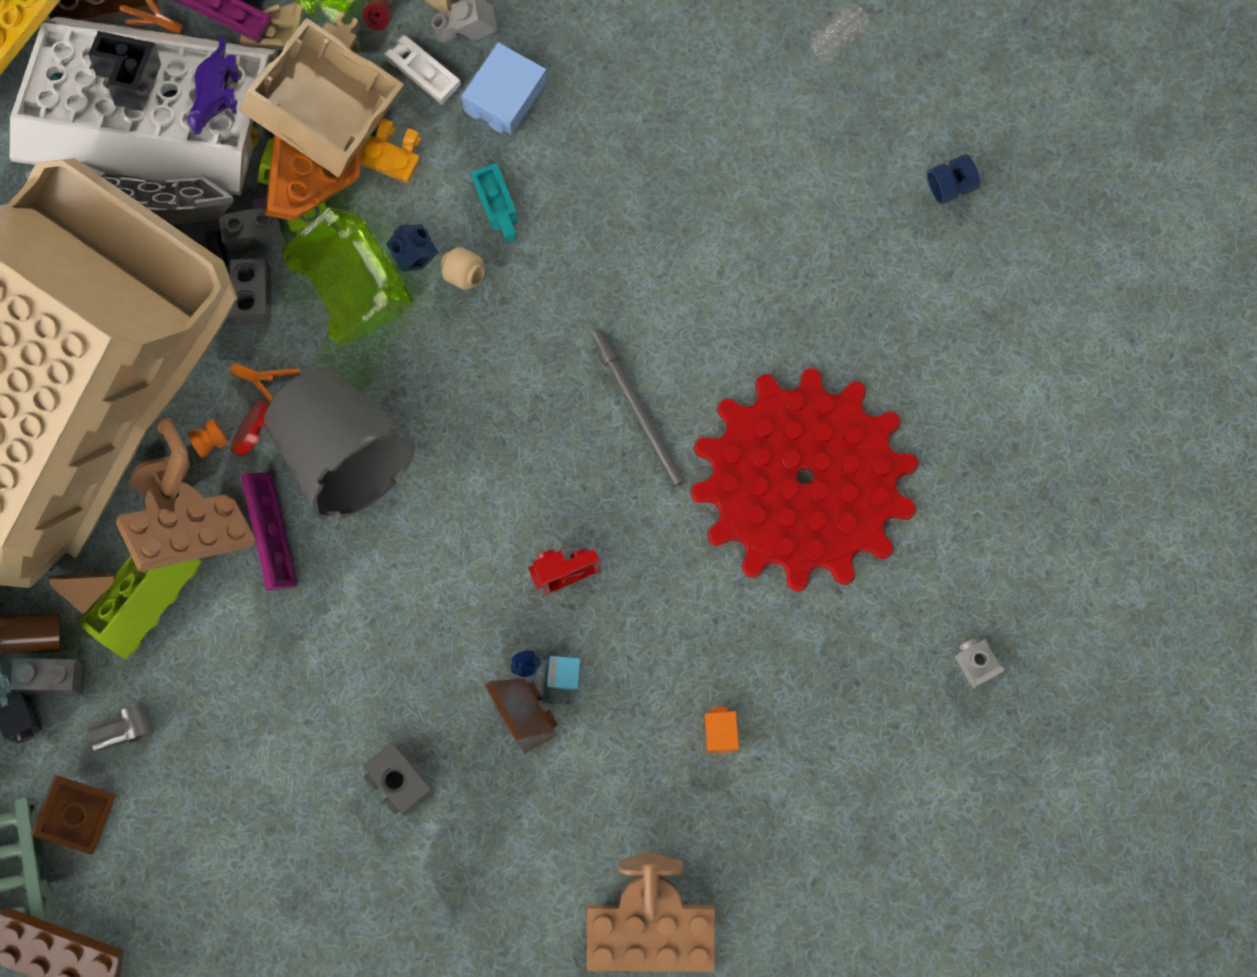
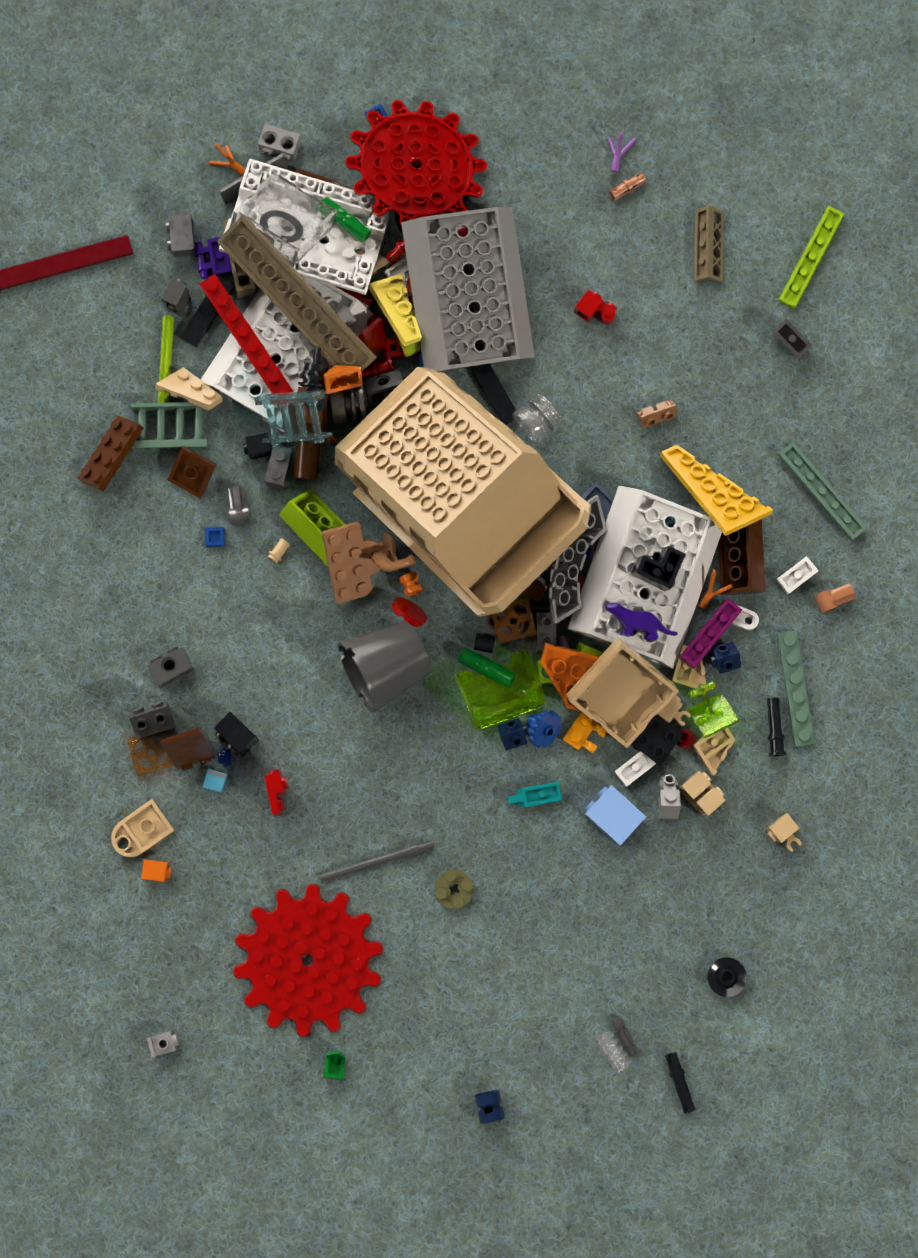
camera: 95 degrees right, 5 degrees up
(81, 589) = (329, 494): medium nougat slope -> none
(176, 757) = (215, 537): none -> blue tile
(185, 651) = (278, 551): none -> tan pin
(255, 377) = (445, 621): orange plant -> none
(268, 282) = (531, 631): none -> clear orange piece
(269, 531) = (343, 613): magenta tile -> none
(282, 315) = (484, 643): none -> black beam
(318, 303) = (486, 667): none -> green axle
(387, 48) = (657, 740): none -> black hinge
(394, 206) = (543, 728): none -> blue plant
(462, 268) = (492, 764): tan head -> none
(485, 651) = (236, 734): none -> black brick
(486, 789) = (151, 719): none -> dark grey brick
(526, 789) = (132, 742): none -> clear orange piece
(651, 928) = (48, 801): medium nougat plate -> none
(656, 273) = (451, 878): none -> olive plate
(661, 768) = (142, 830): none -> tan tile
(811, 23) = (625, 1037): none -> dark grey axle
(948, 405) = (334, 1065): none -> green plate

